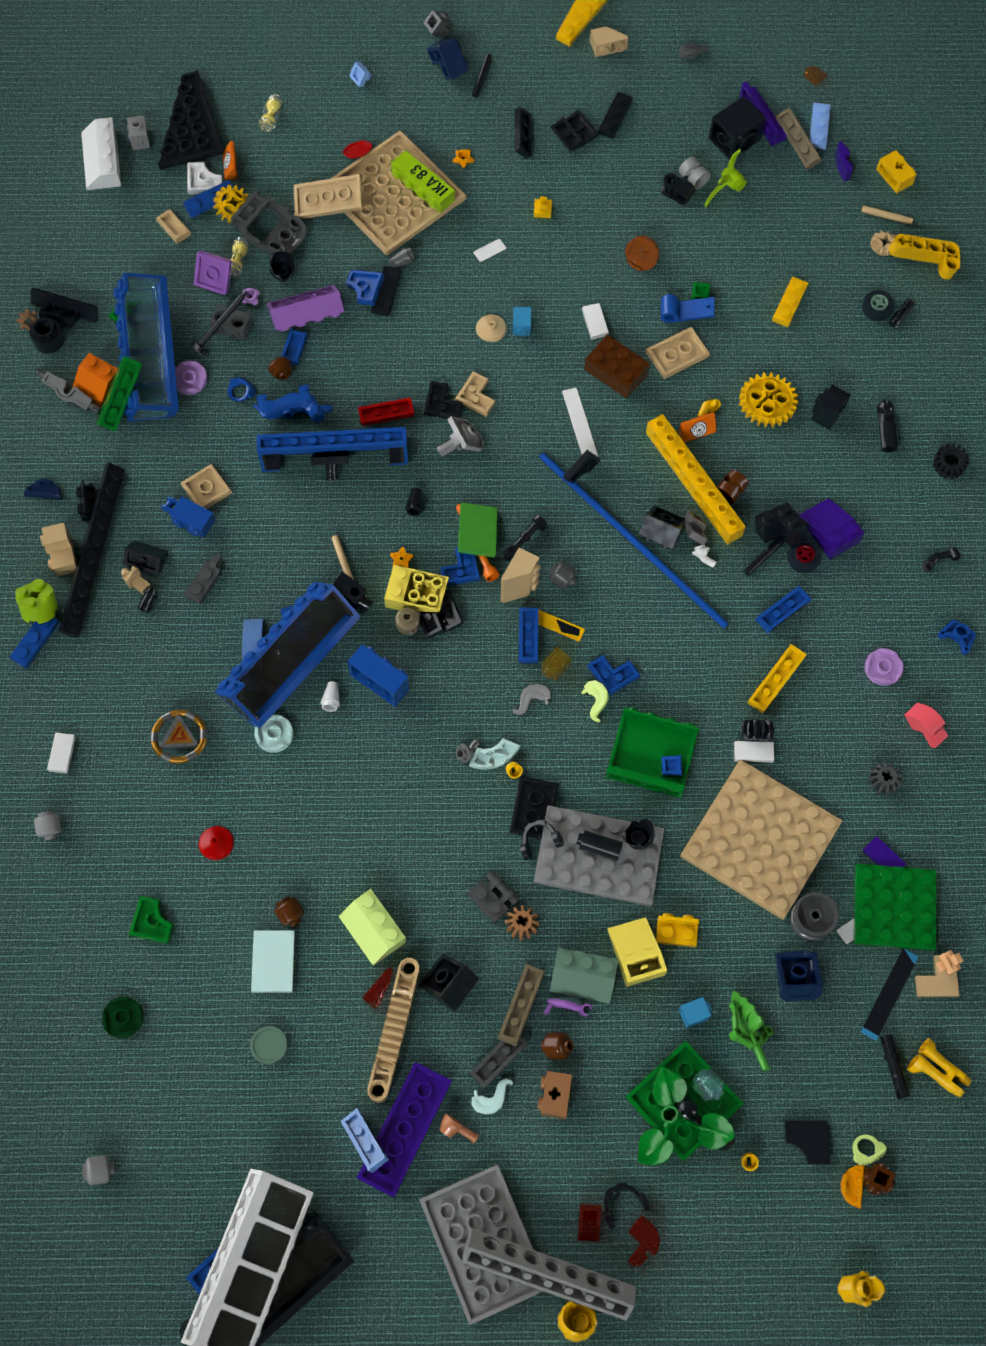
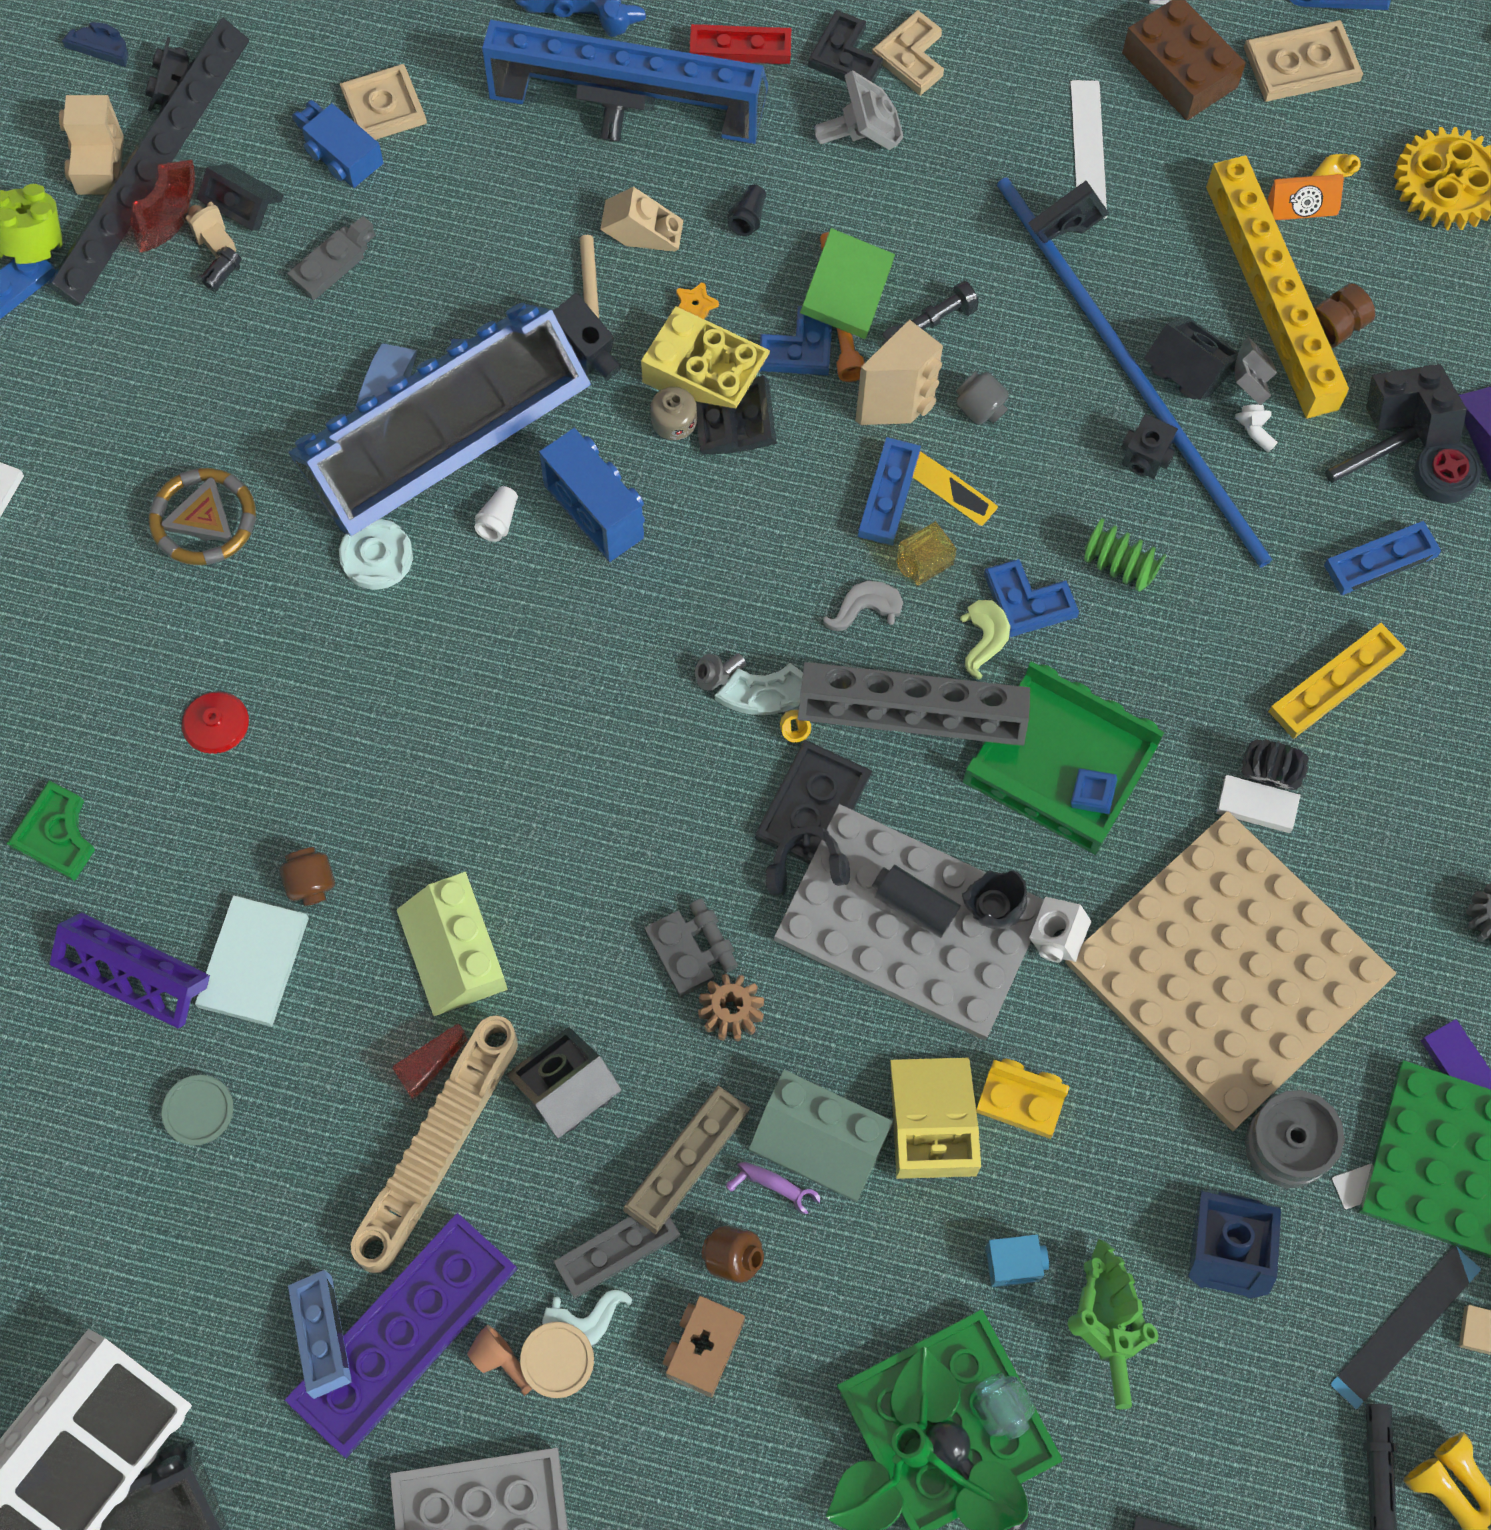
camera: 15 degrees right, 0 degrees up
(111, 569) = (166, 207): none -> clear red brick
(211, 977) = (123, 953): none -> dark purple fence
(361, 522) = (641, 222): none -> tan slope
(485, 1121) = (557, 1359): none -> tan piece
(571, 744) = (914, 703): none -> dark grey brick
(653, 580) = (1149, 447): none -> black brick
(654, 641) = (1122, 556): none -> bright green piece
(670, 834) = (1053, 917): none -> white brick

